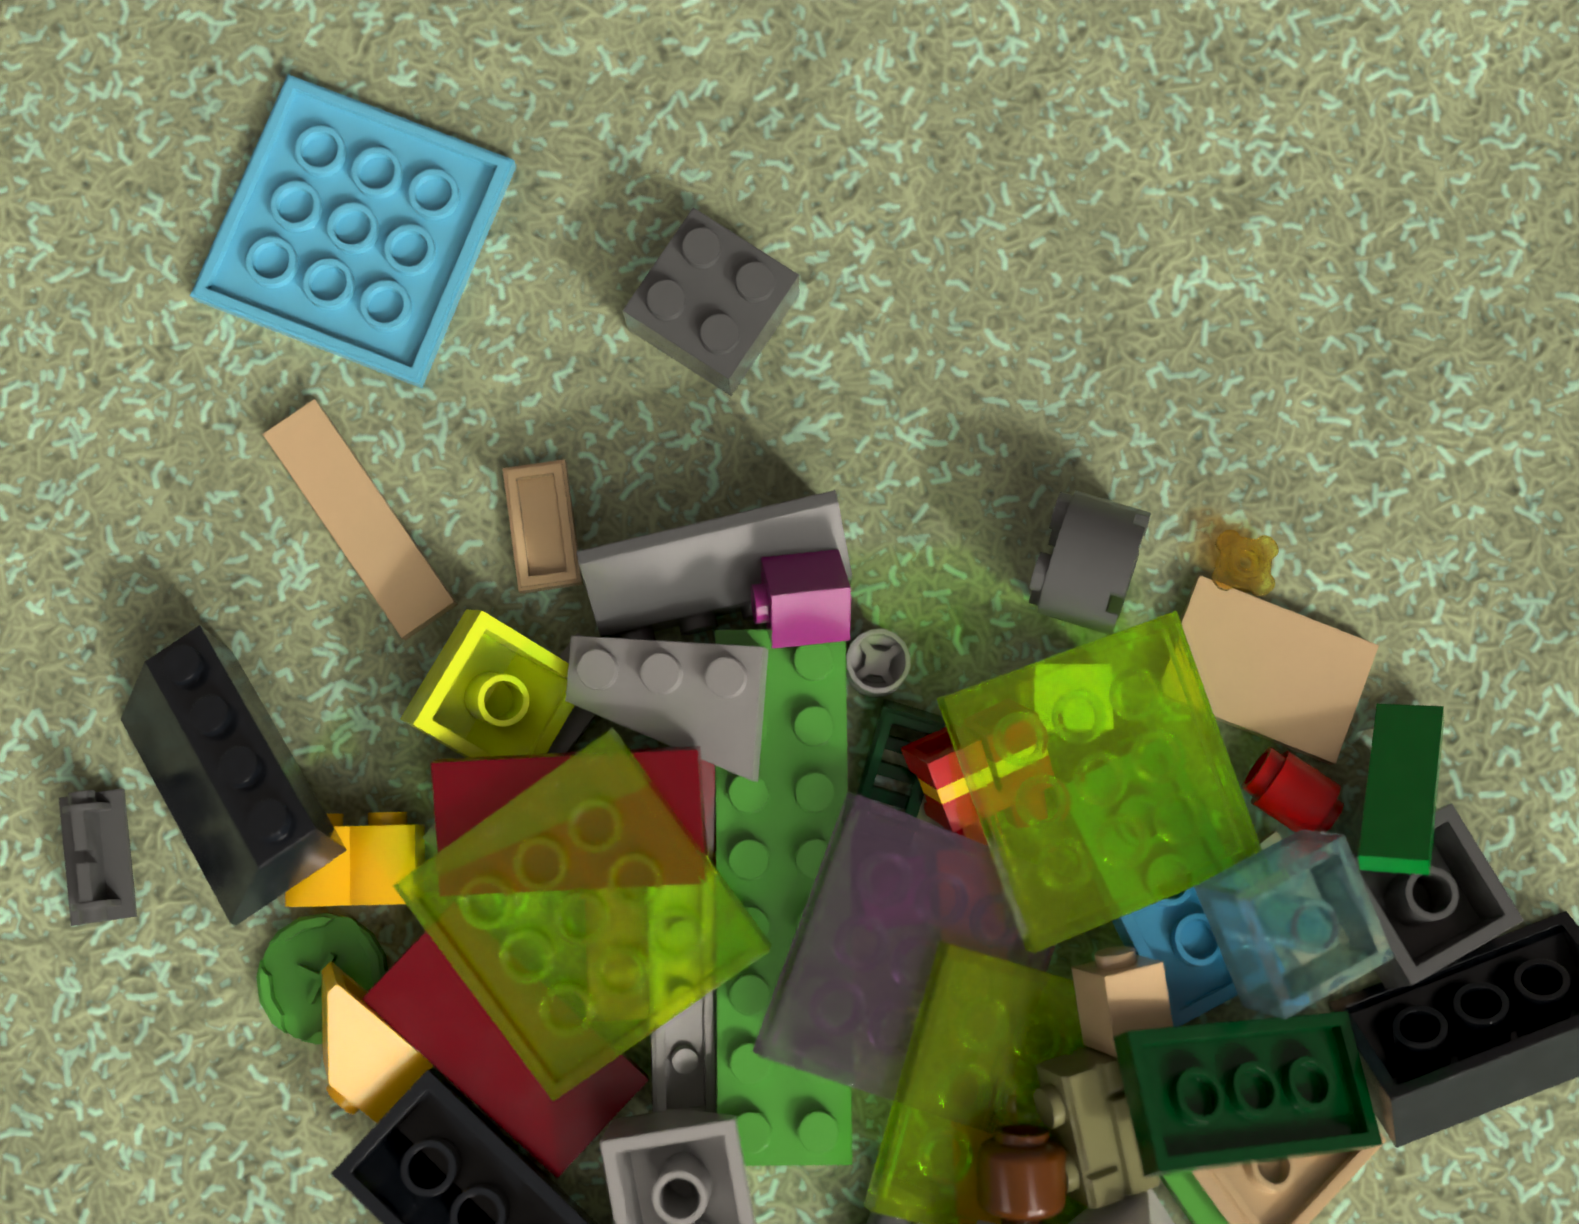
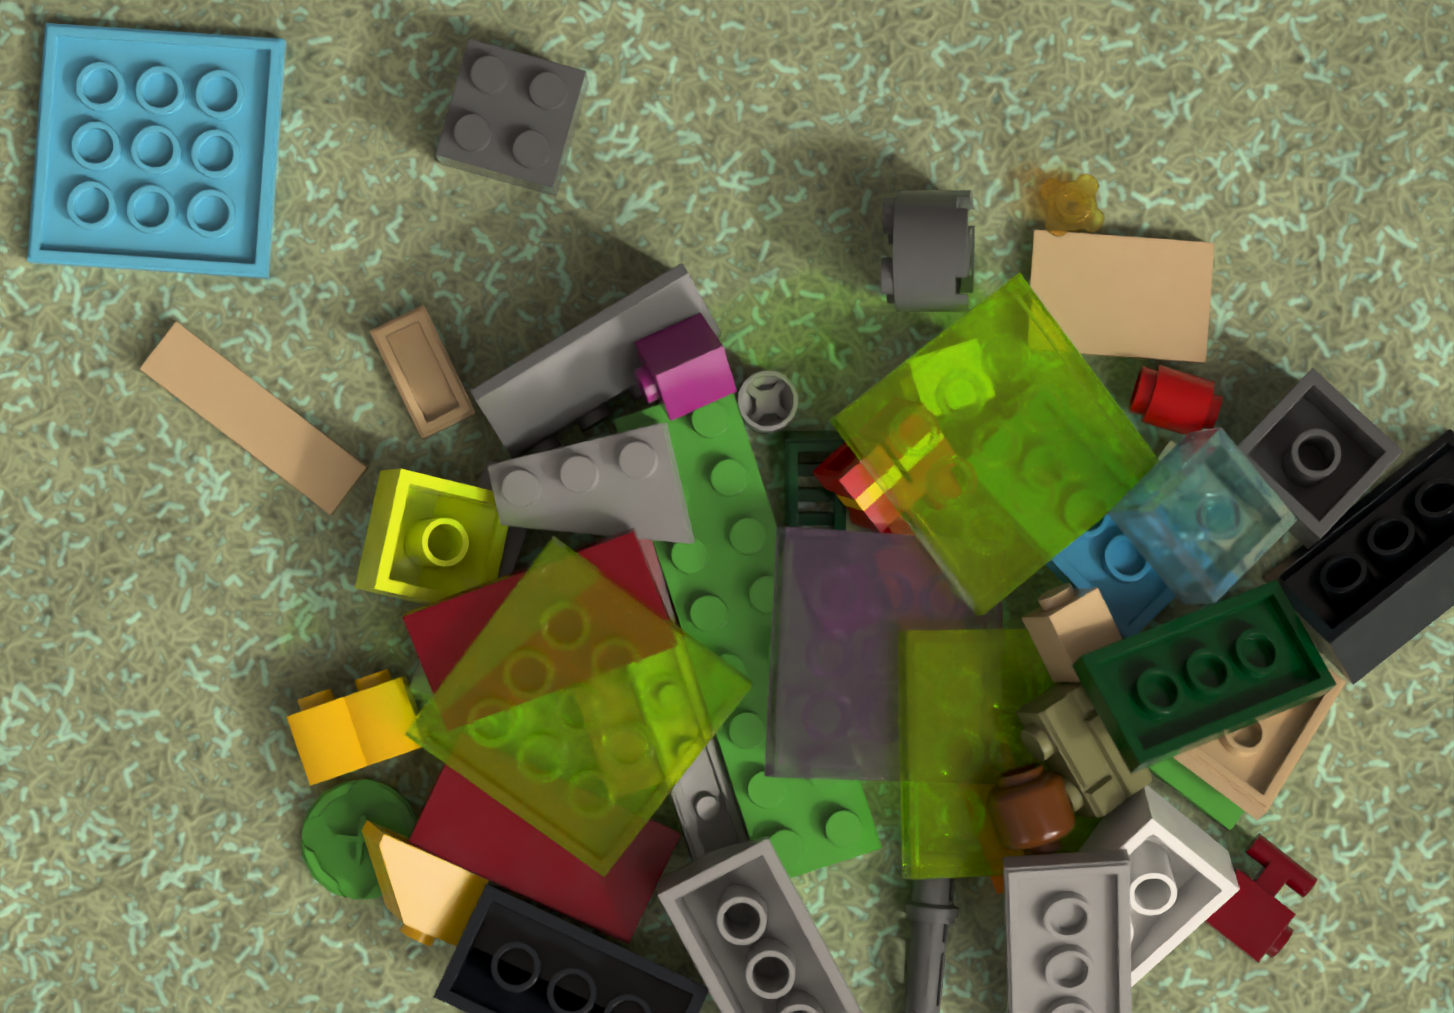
camera: 15 degrees left, 5 degrees up
(97, 856) = (122, 796): dark grey hinge -> none
(227, 775) = (217, 686): black slope -> none
(1402, 789) = (1266, 367): green tile -> none

